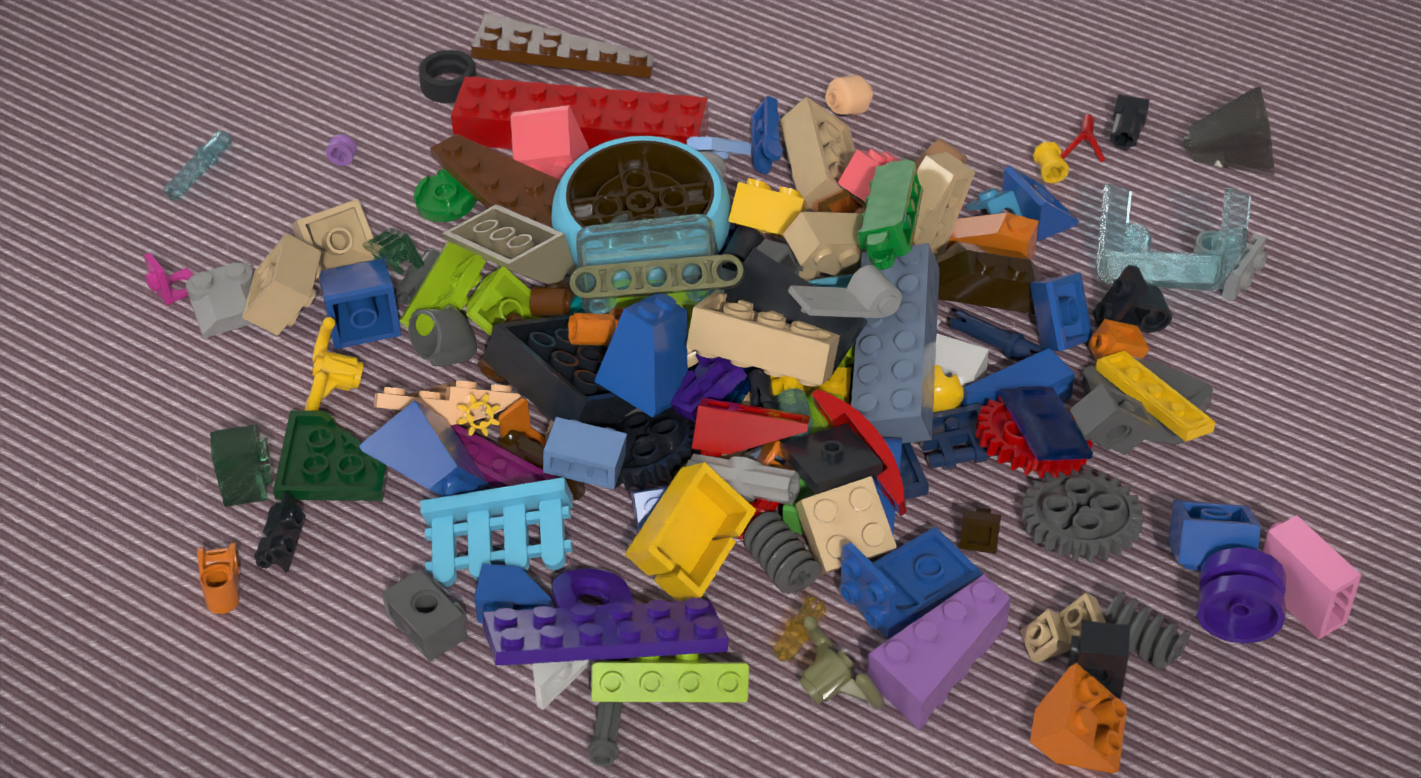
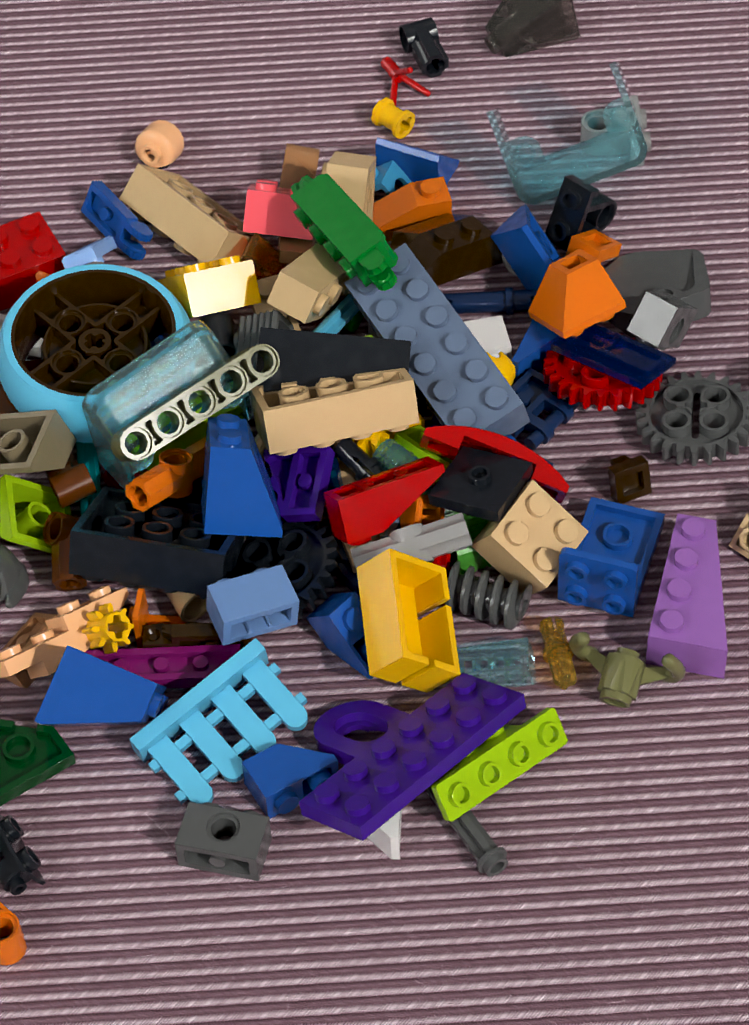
camera: 35 degrees left, 5 degrees up
(763, 623) = (506, 651): none -> clear light blue slope
(867, 296) = (393, 323): light grey door -> none
(1049, 360) = (575, 295): none -> orange slope
(1156, 395) = (680, 282): yellow tile -> none

